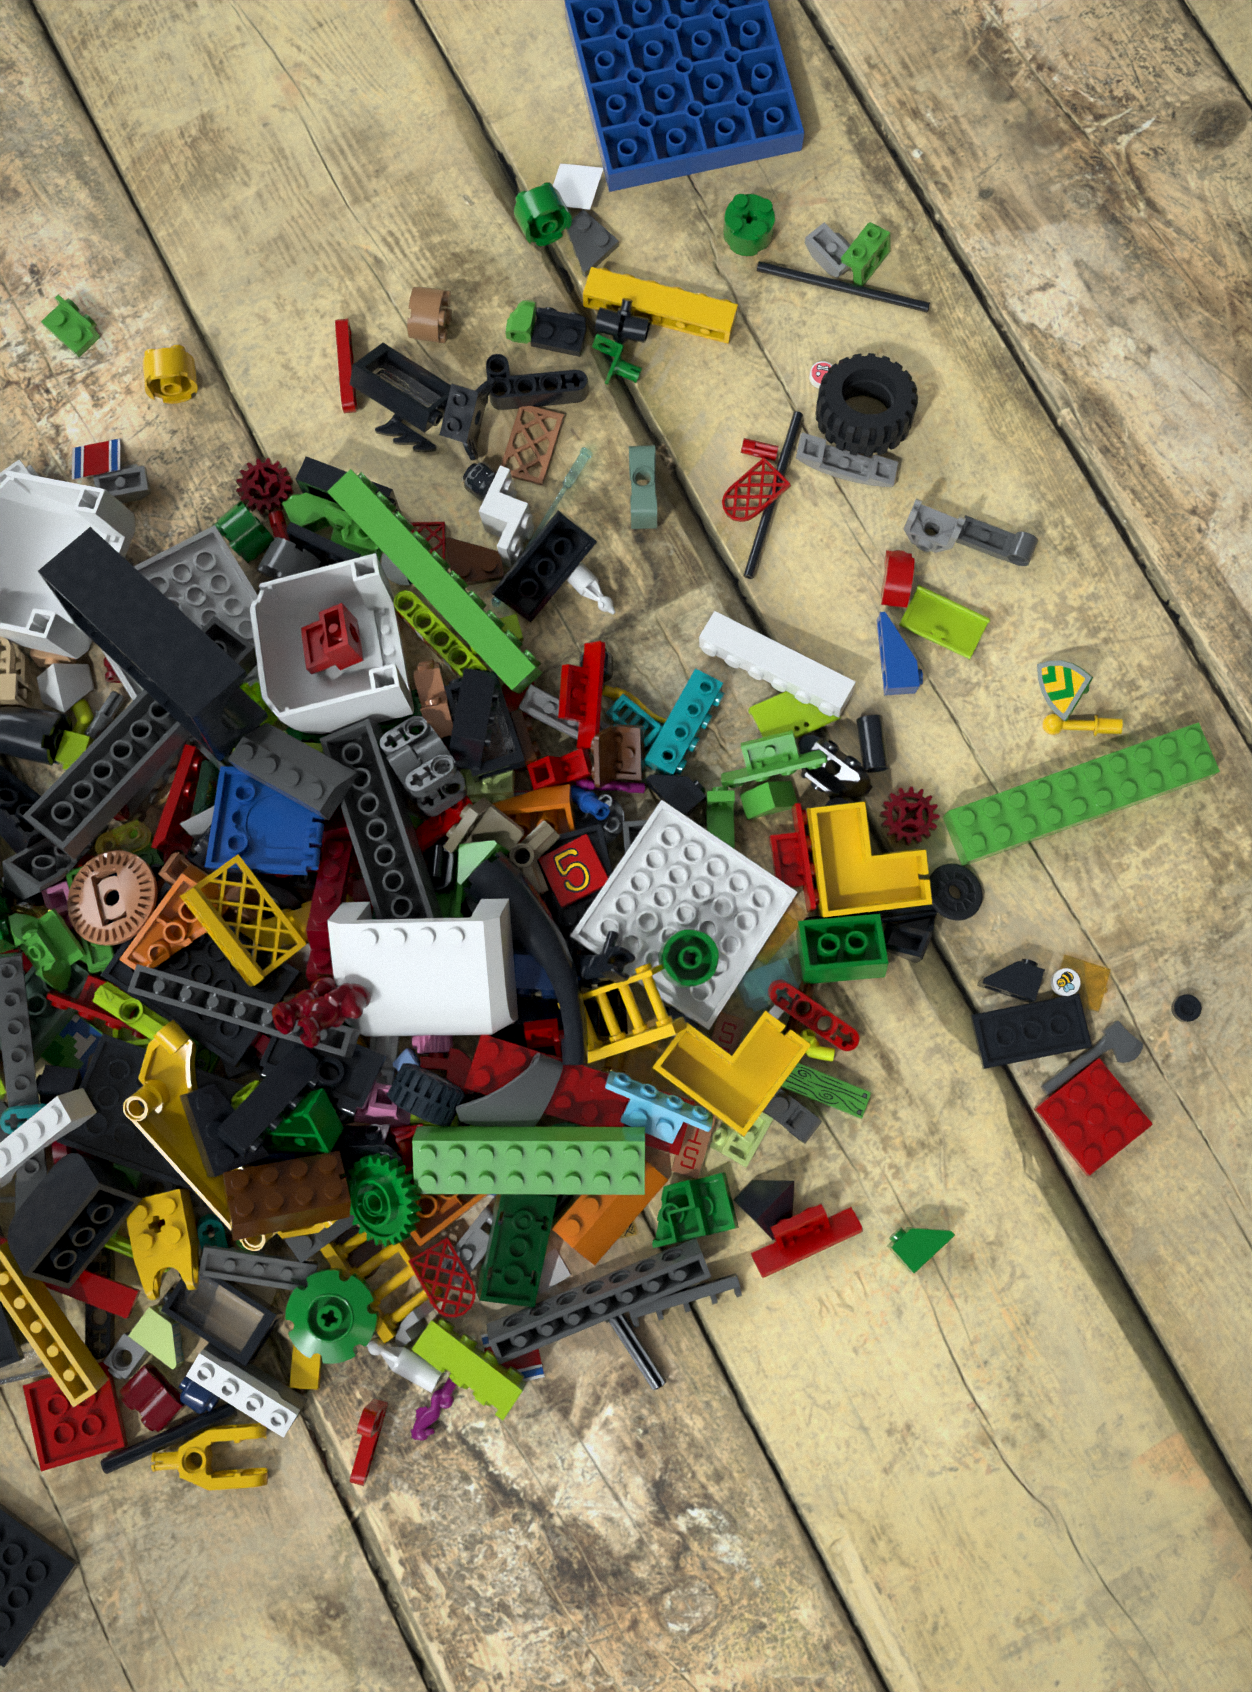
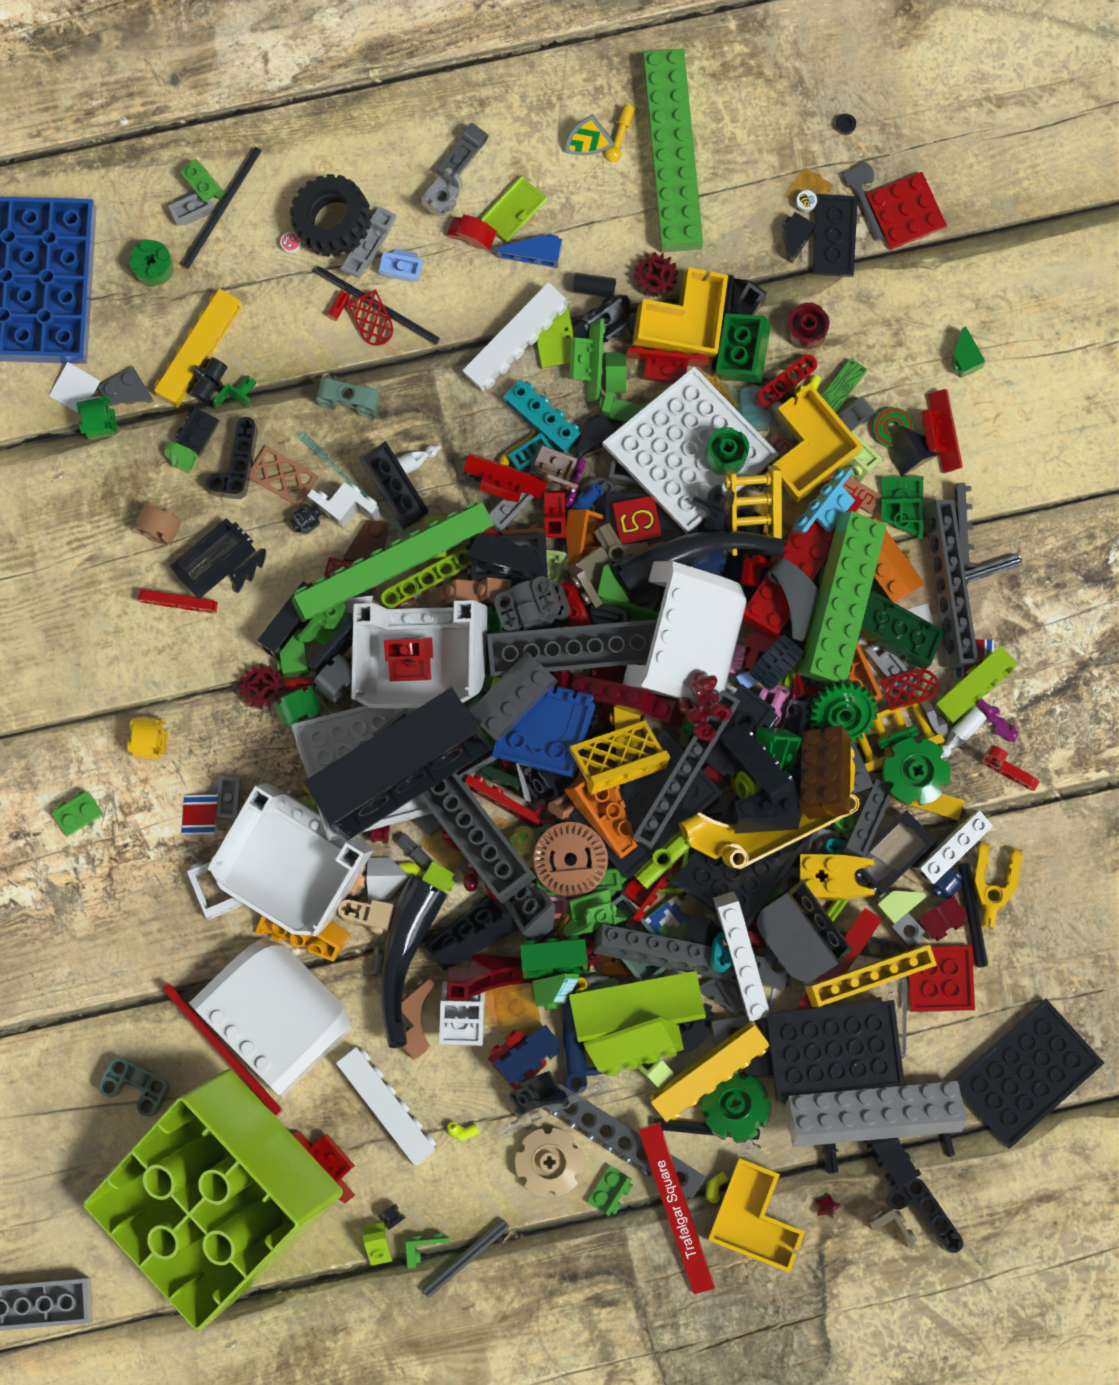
camera: 75 degrees left, 0 degrees up
(375, 1279) = (897, 736): none -> green axle
(465, 415) = (251, 516): black piece -> none
(798, 1155) = (886, 417): none -> green tile
(831, 507) = (401, 265): none -> light blue slope
(904, 1012) = (807, 337): none -> dark red brick
(965, 881) = (724, 248): black wheel -> none

